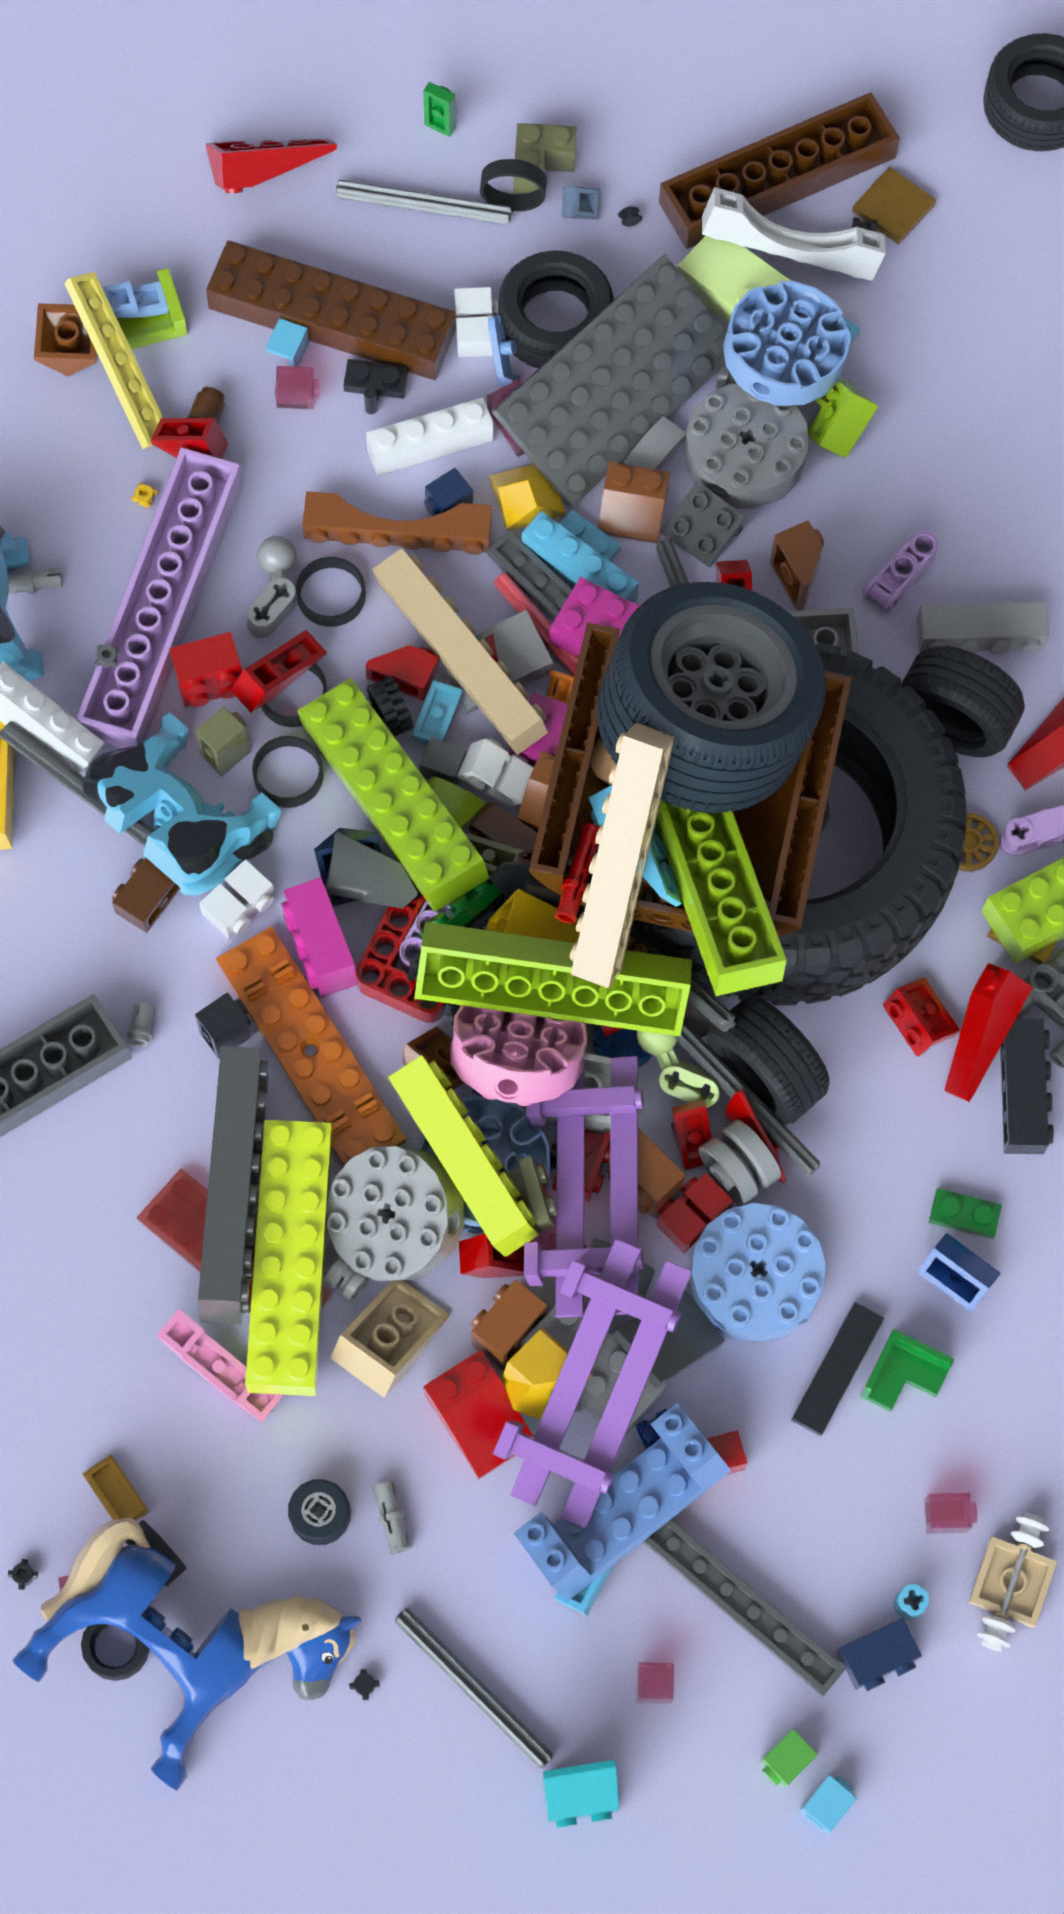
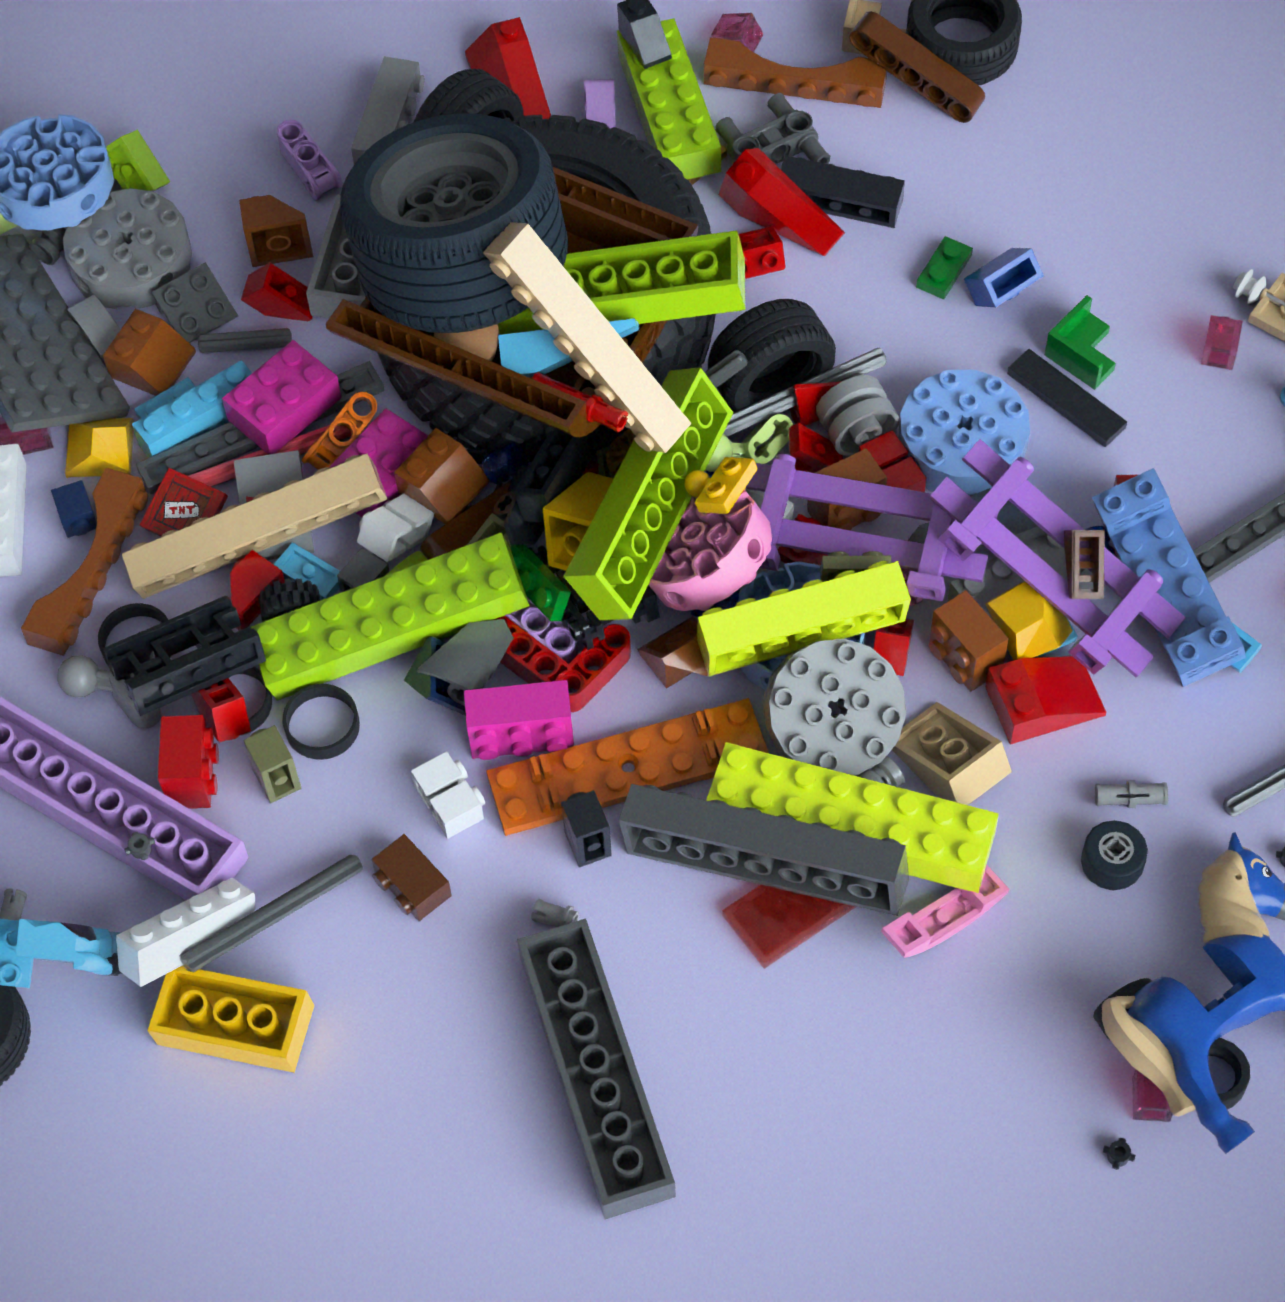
camera: 70 degrees left, 10 degrees down
(115, 1490) = (1051, 1045): pearl gold tile -> none
(191, 838) = (307, 847): medium azure animal -> none
(286, 646) = (163, 680): none -> black fence
(474, 584) = (180, 503): none -> tile
(570, 1040) = (723, 488): none -> yellow plate
(618, 1401) = (1096, 551): none -> reddish brown slope

